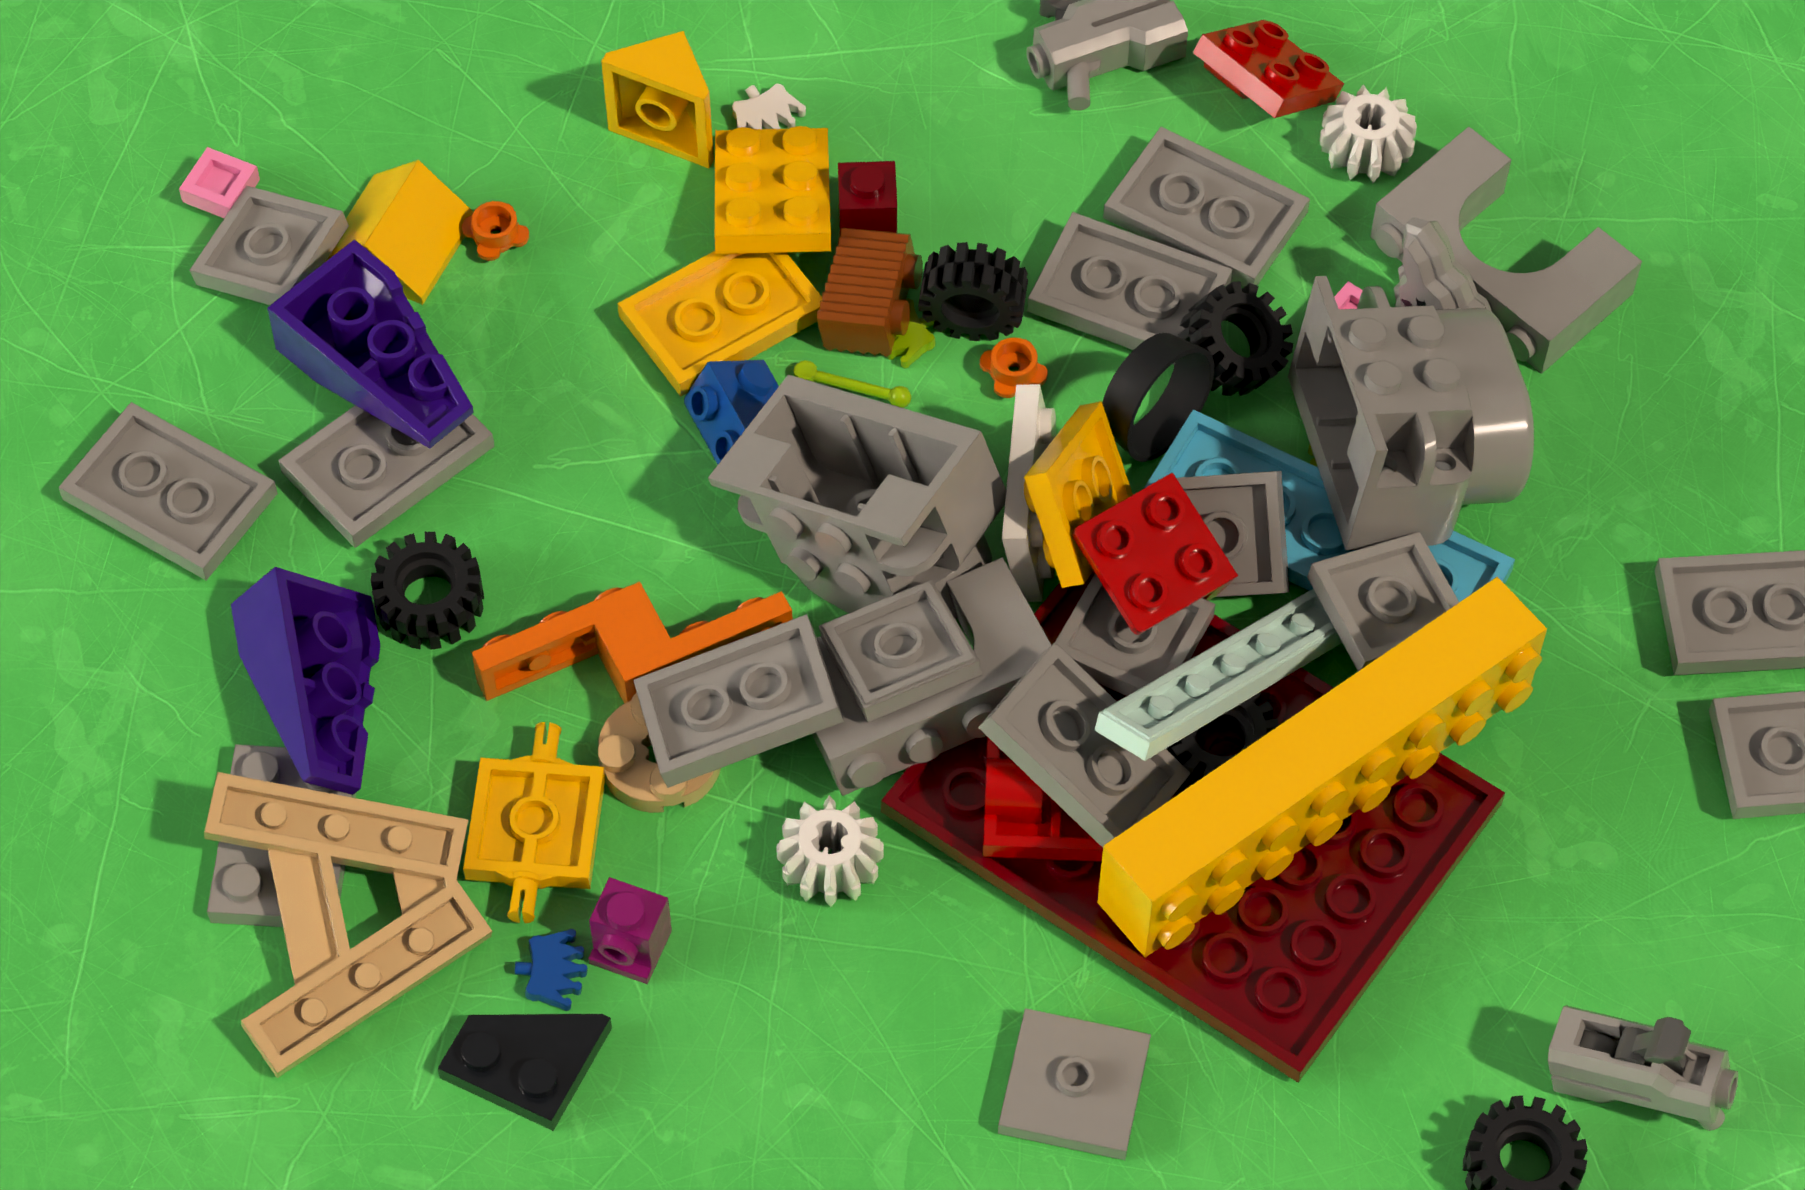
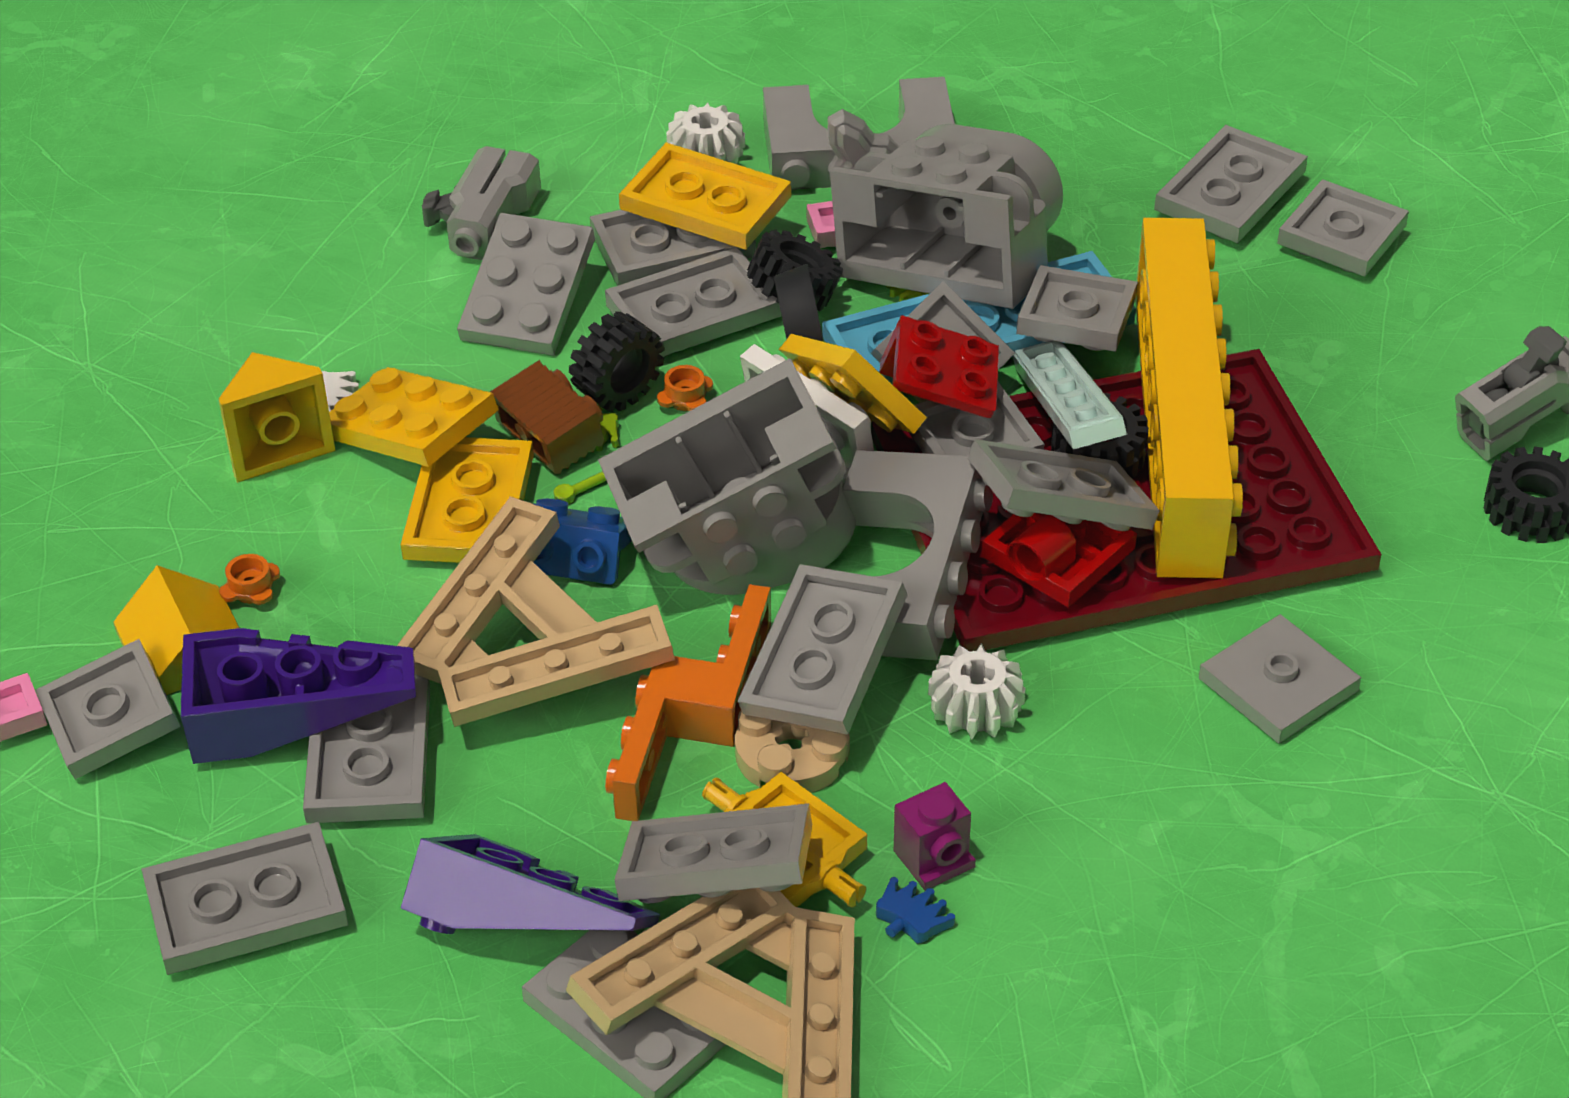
camera: 50 degrees left, 15 degrees down
(423, 561) = (511, 766): black tyre -> none
(443, 782) = (714, 853): none -> light grey plate
(525, 1060) = (978, 972): black wing -> none
(622, 410) = (571, 645): none -> tan plate
(867, 195) = (478, 364): dark red brick -> none
(900, 650) = (881, 533): light grey plate -> none
(1025, 147) = (526, 284): none -> light grey plate
(1261, 196) = (705, 195): none -> yellow plate
(1268, 68) = (586, 150): red plate -> none

